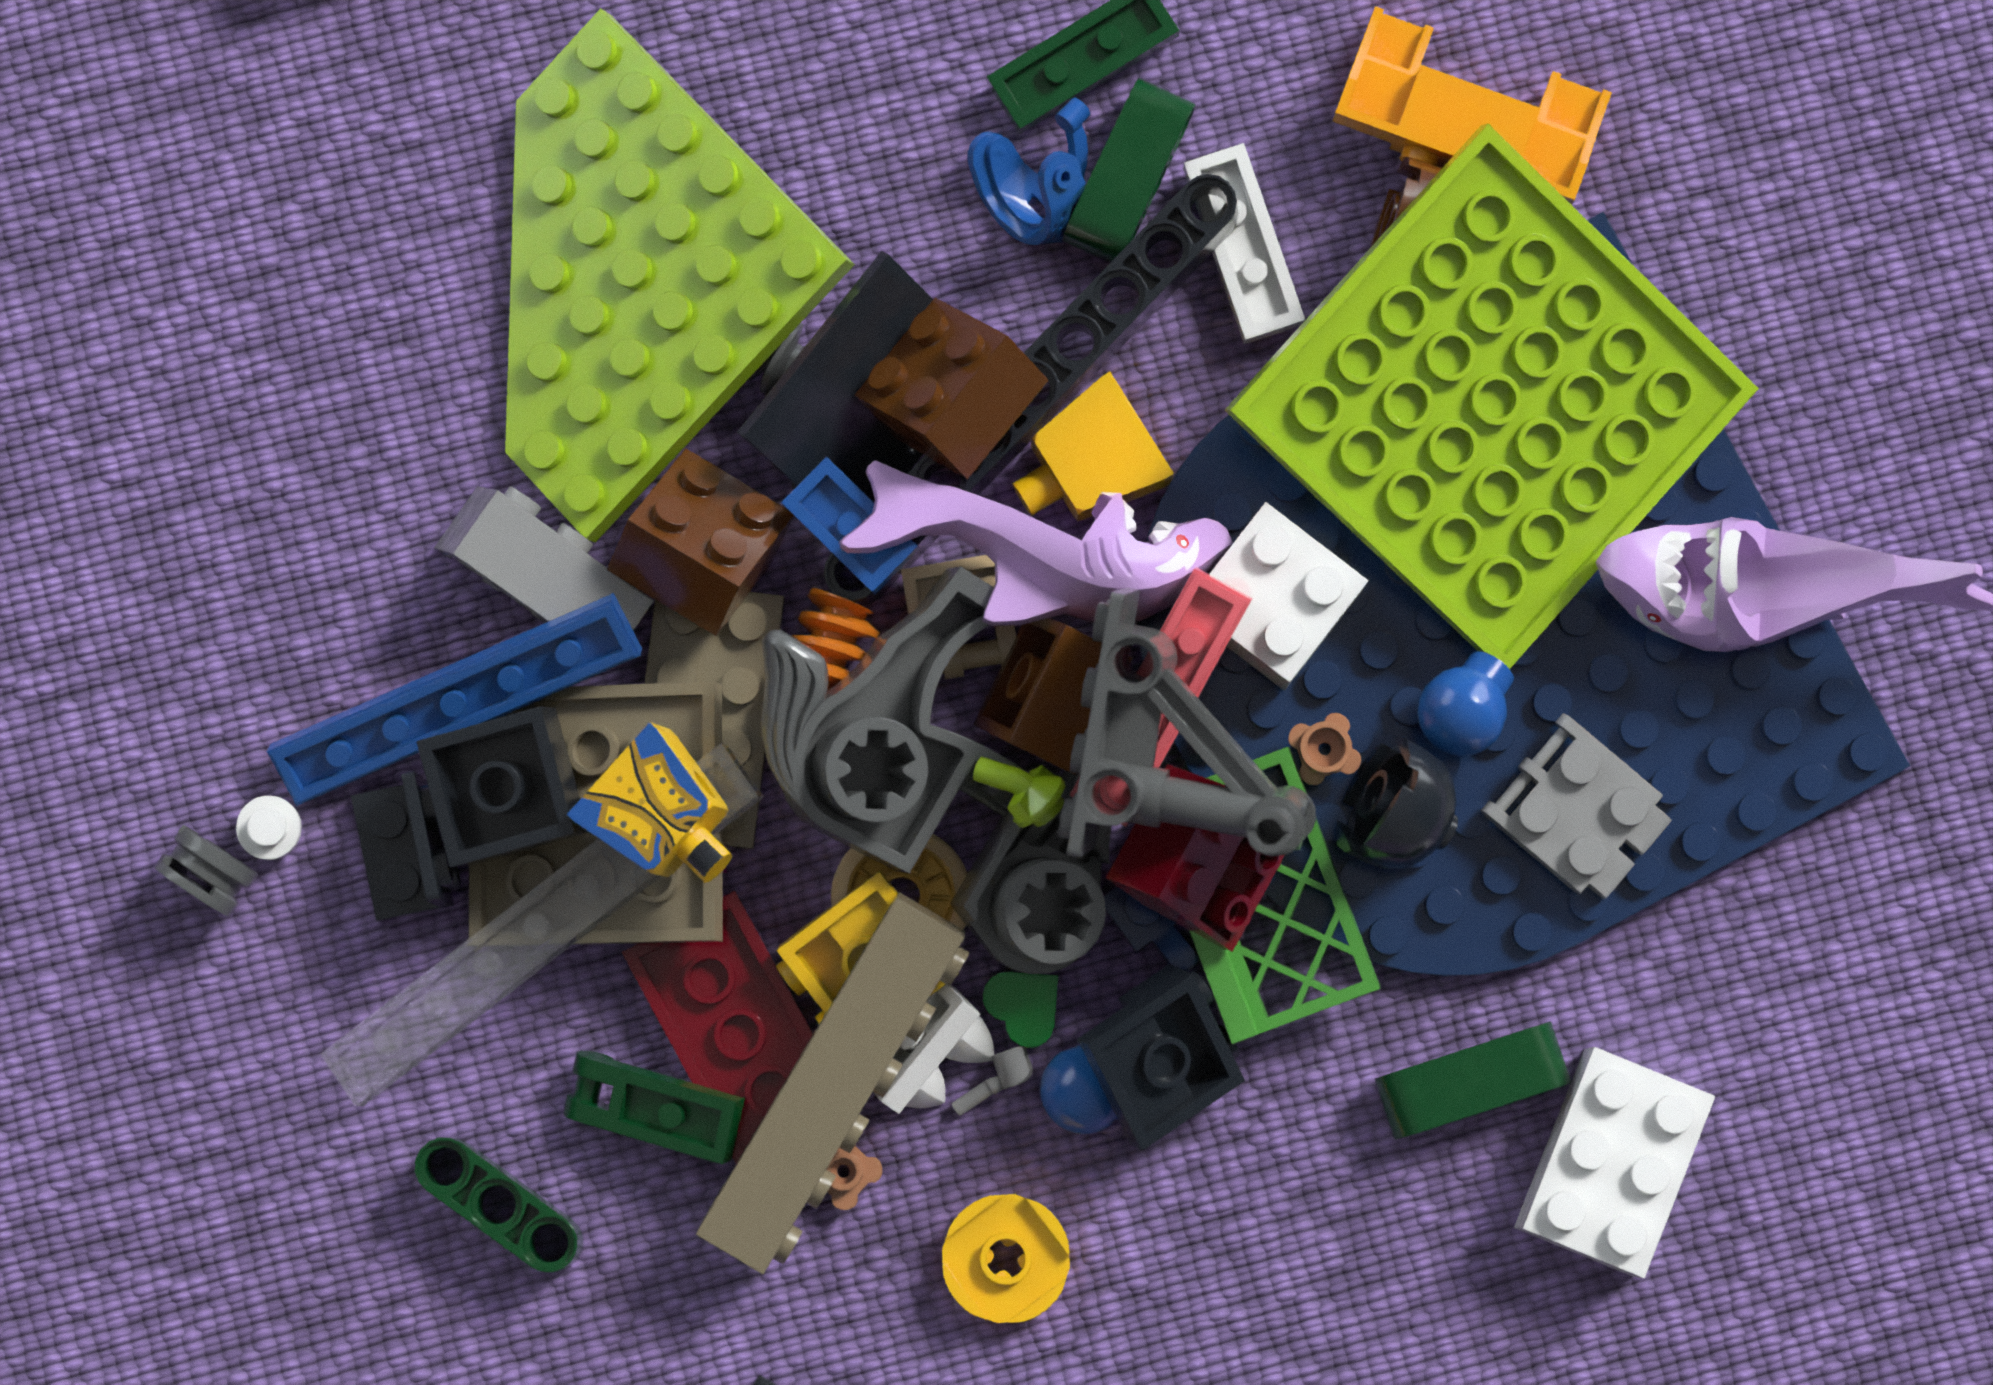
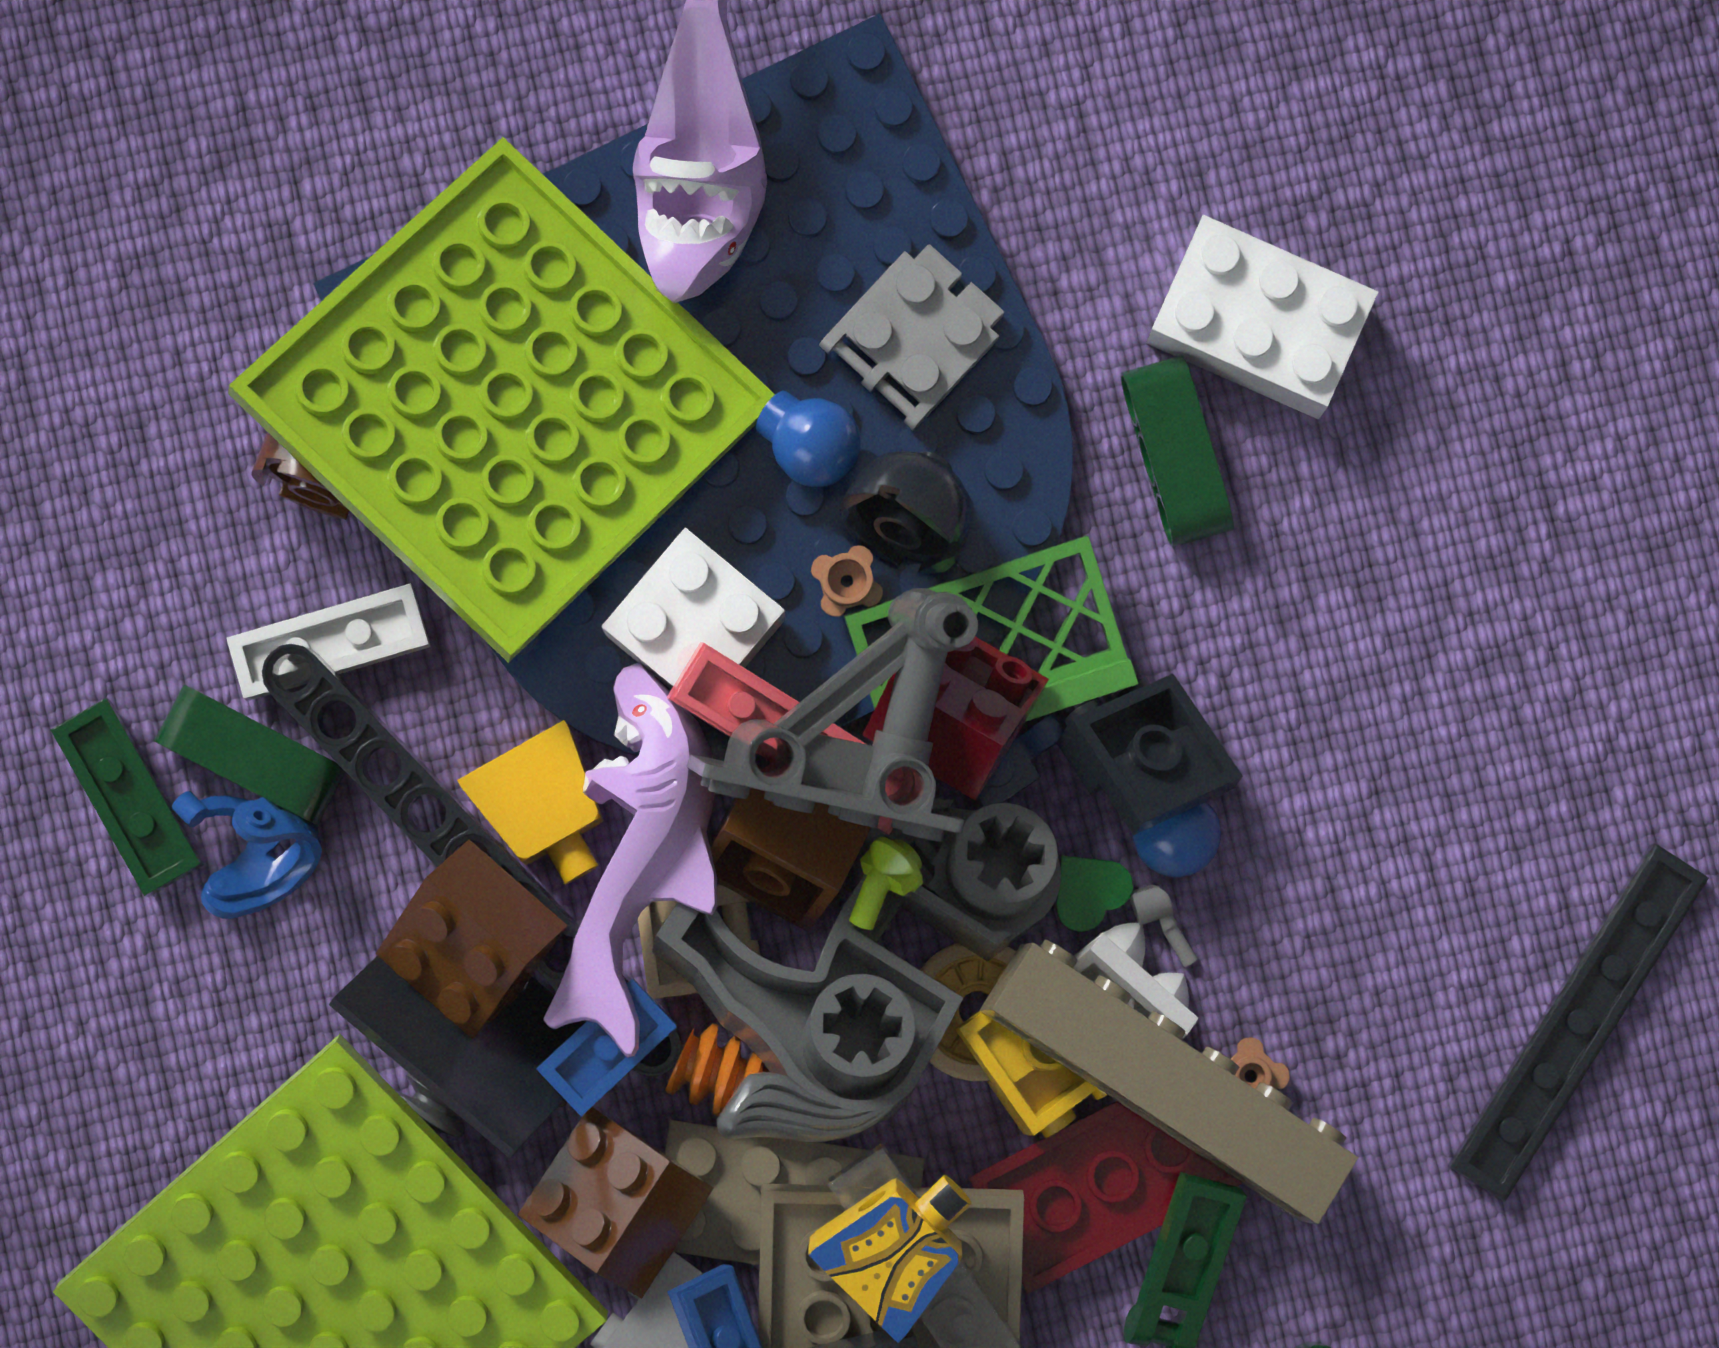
camera: 90 degrees left, 0 degrees up
(1042, 1264) = (1377, 922): yellow plate -> none
(1435, 113) = (211, 435): light orange bracket -> none

